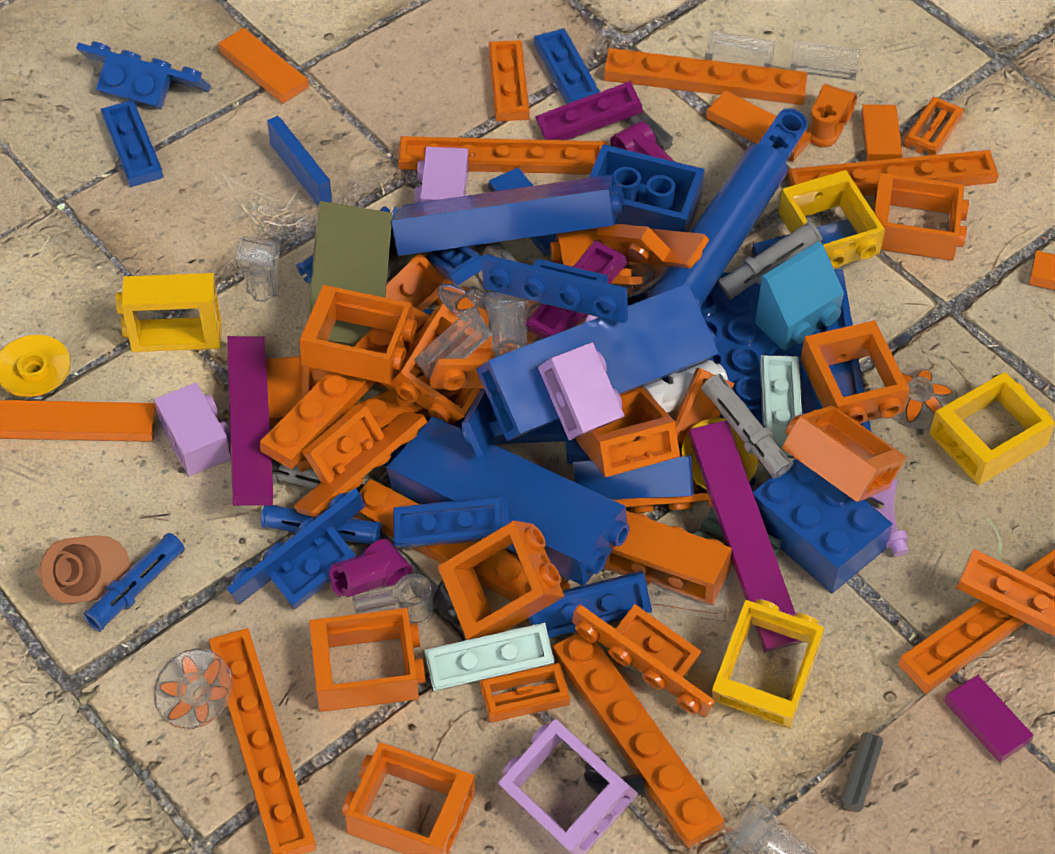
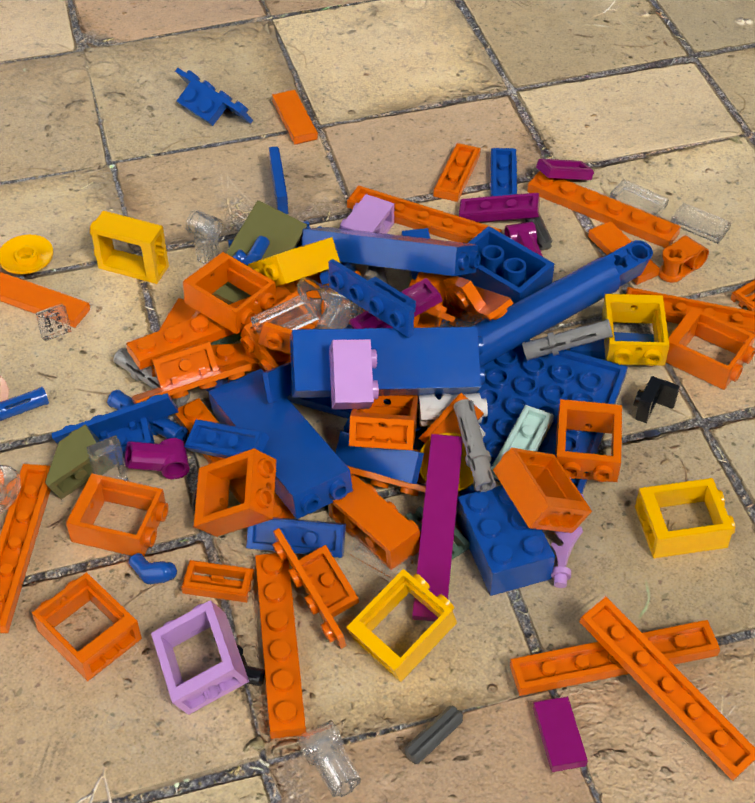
camera: 25 degrees right, 5 degrees down
(127, 444) = (53, 322): none -> clear tile
(132, 143) = (179, 140): blue tile -> none
(193, 428) = (101, 326): lavender brick -> none
(249, 421) = (145, 320): magenta tile -> none
(279, 609) = (71, 462): none -> olive slope
(321, 596) = (107, 459): none -> clear tile
(353, 270) = (256, 252): none -> blue arm
(398, 597) = (174, 482): clear piece -> none
(415, 272) = (297, 262): none -> yellow window
(444, 712) = (152, 572): none -> blue arm
(488, 657) = (205, 545): light aqua tile -> none
(639, 39) = (565, 169): none -> magenta tile
(799, 297) = (573, 369): dark azure slope -> none
(881, 132) = (716, 283): orange tile -> none
(890, 289) = (658, 392): none -> black bracket
(922, 405) = (638, 472): clear dish -> none

